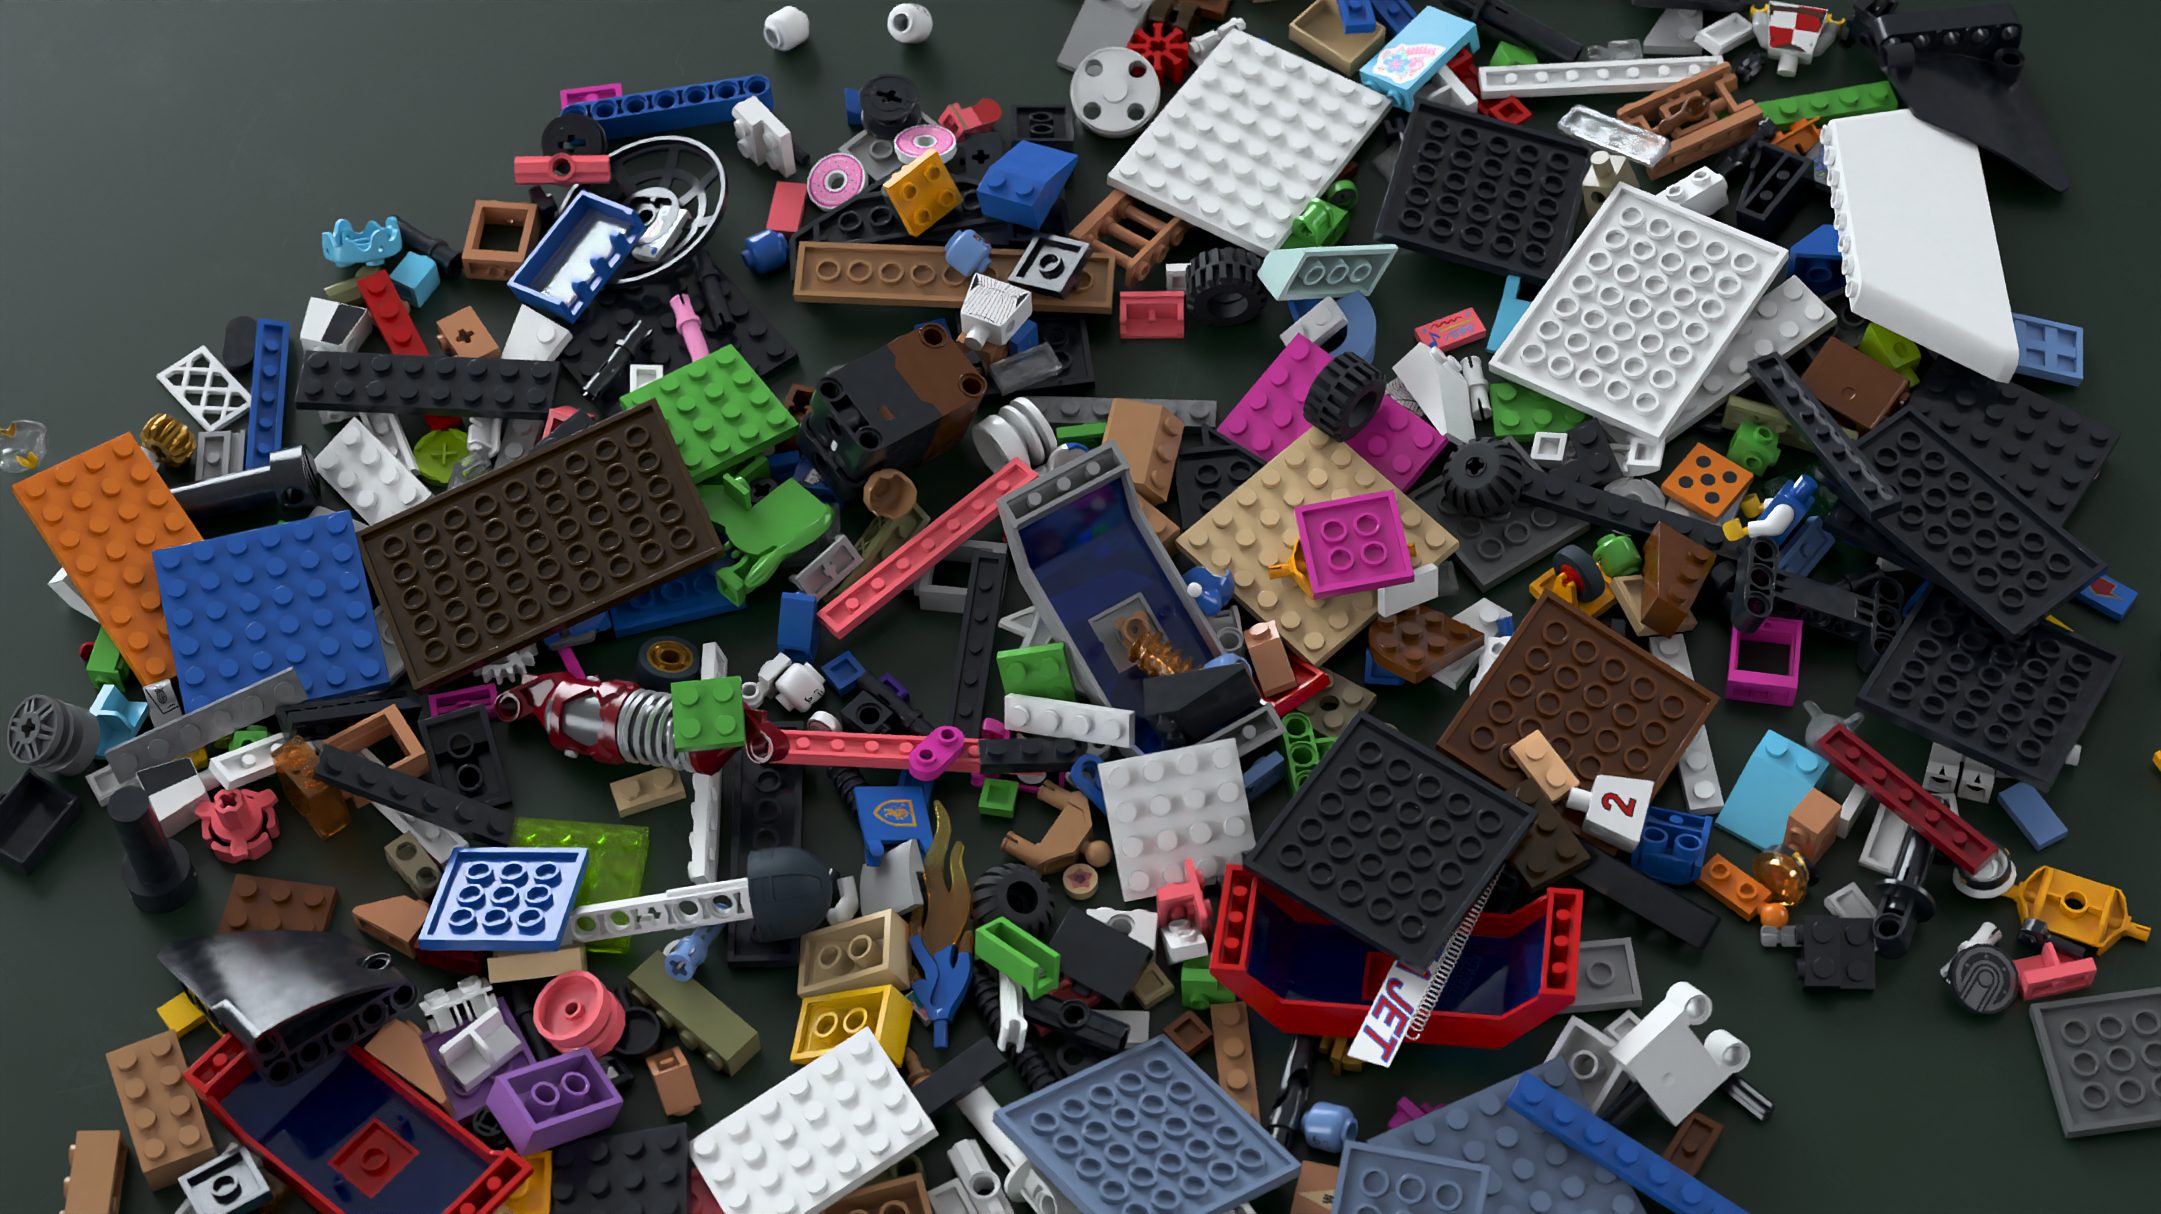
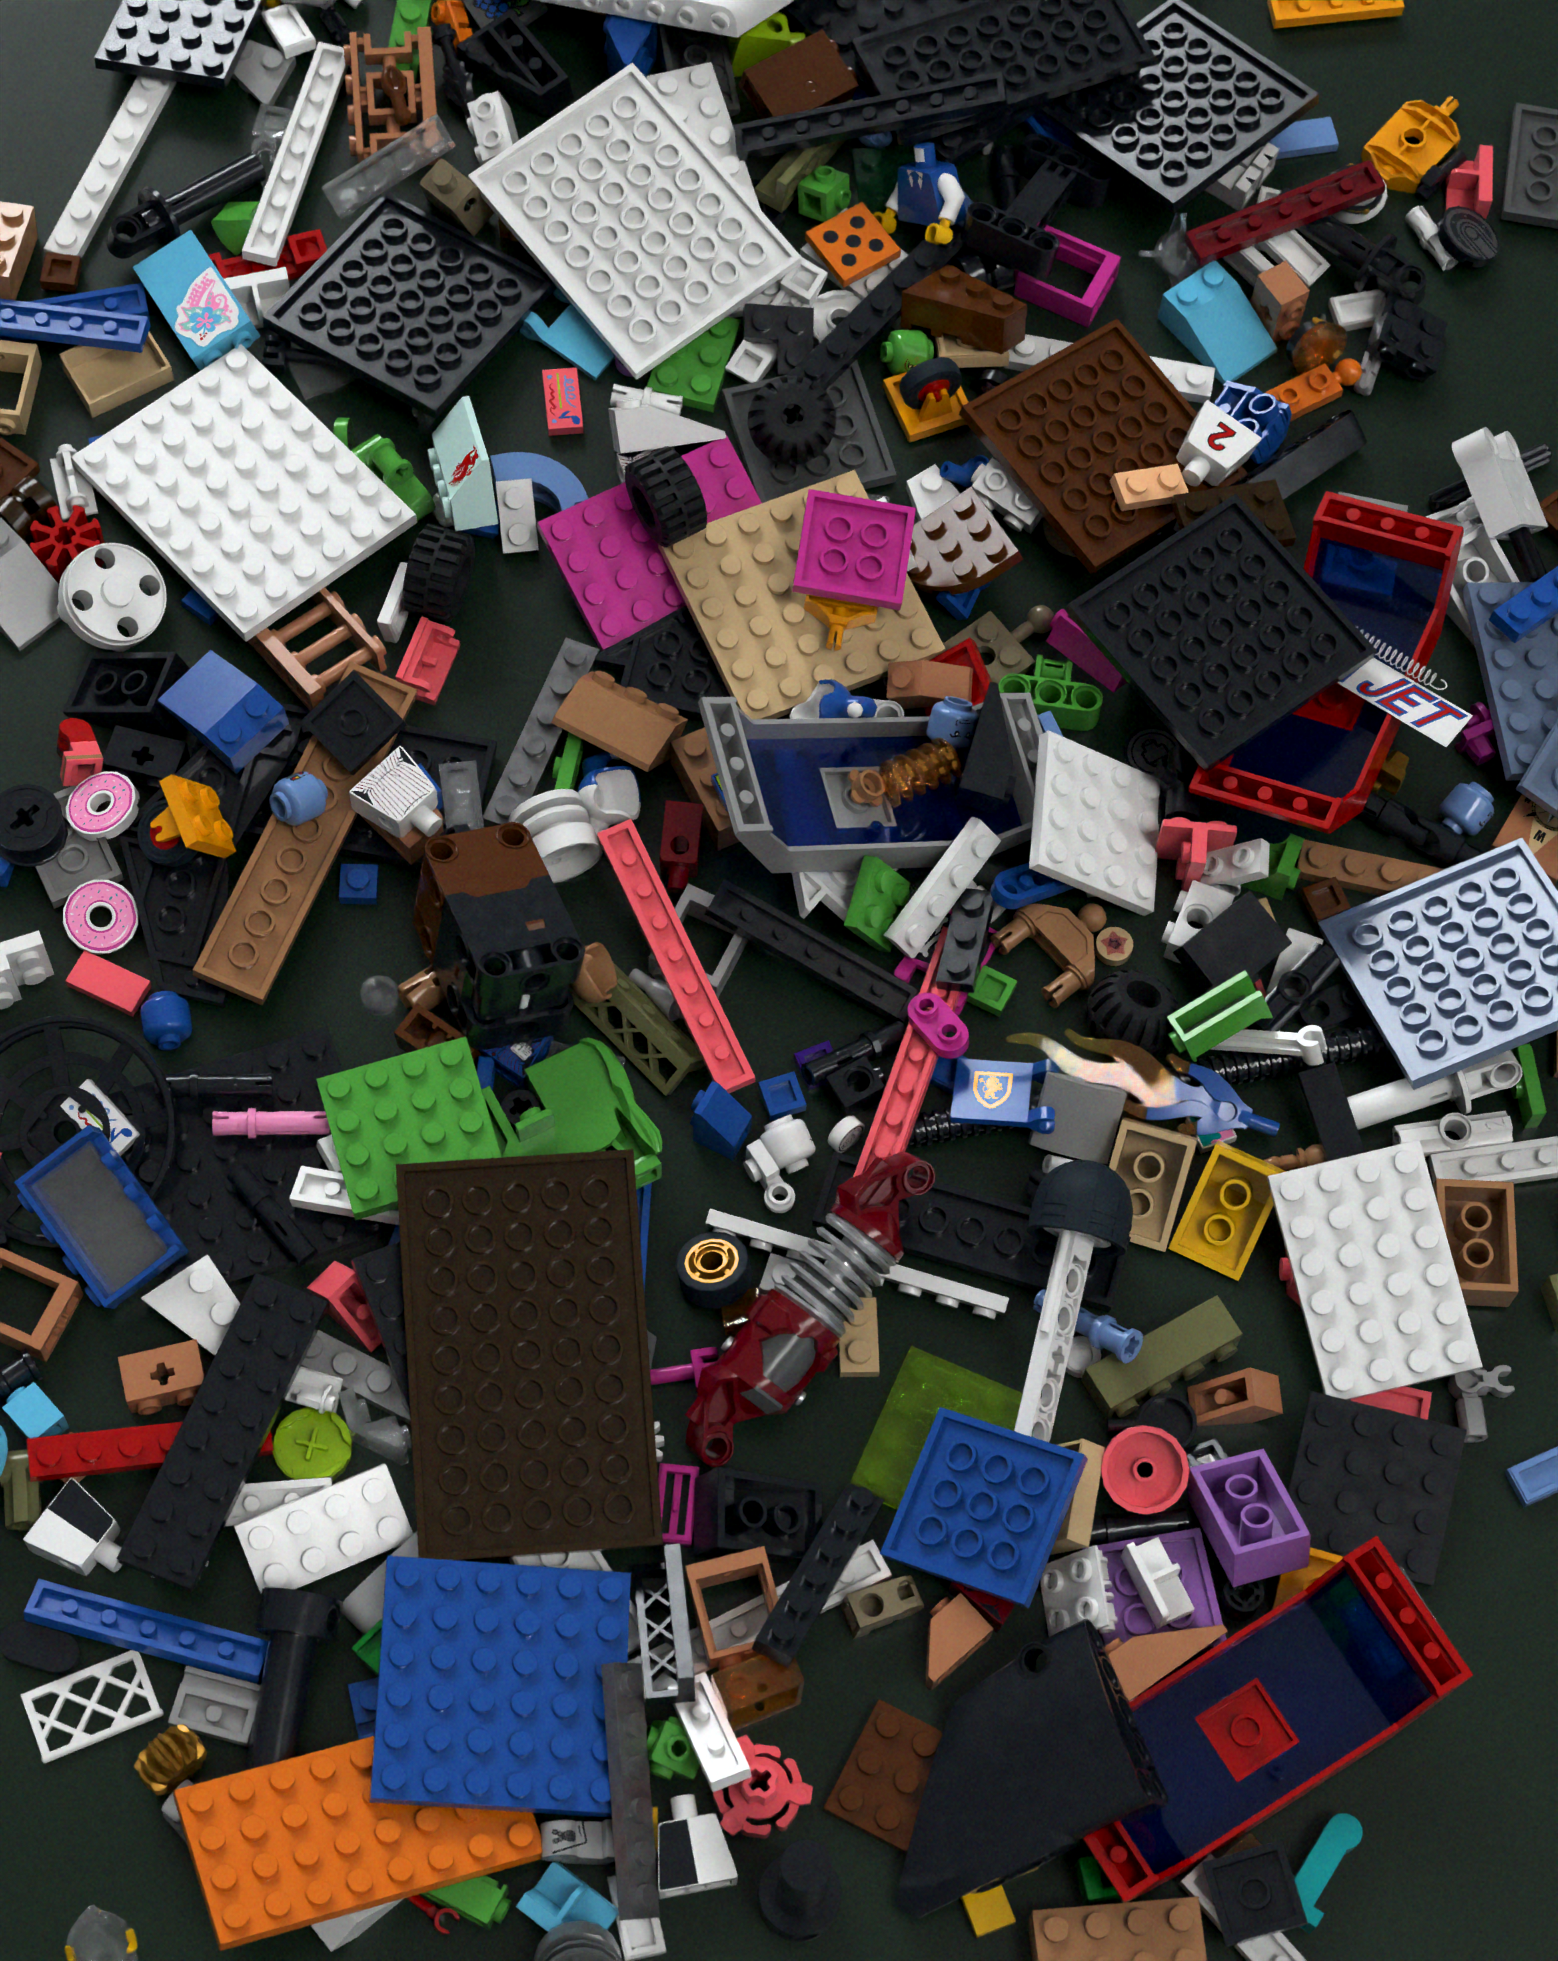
camera: 80 degrees left, 10 degrees up
(708, 714) = (871, 1212): bright green plate -> none
(828, 568) = (651, 1071): light grey hinge -> none

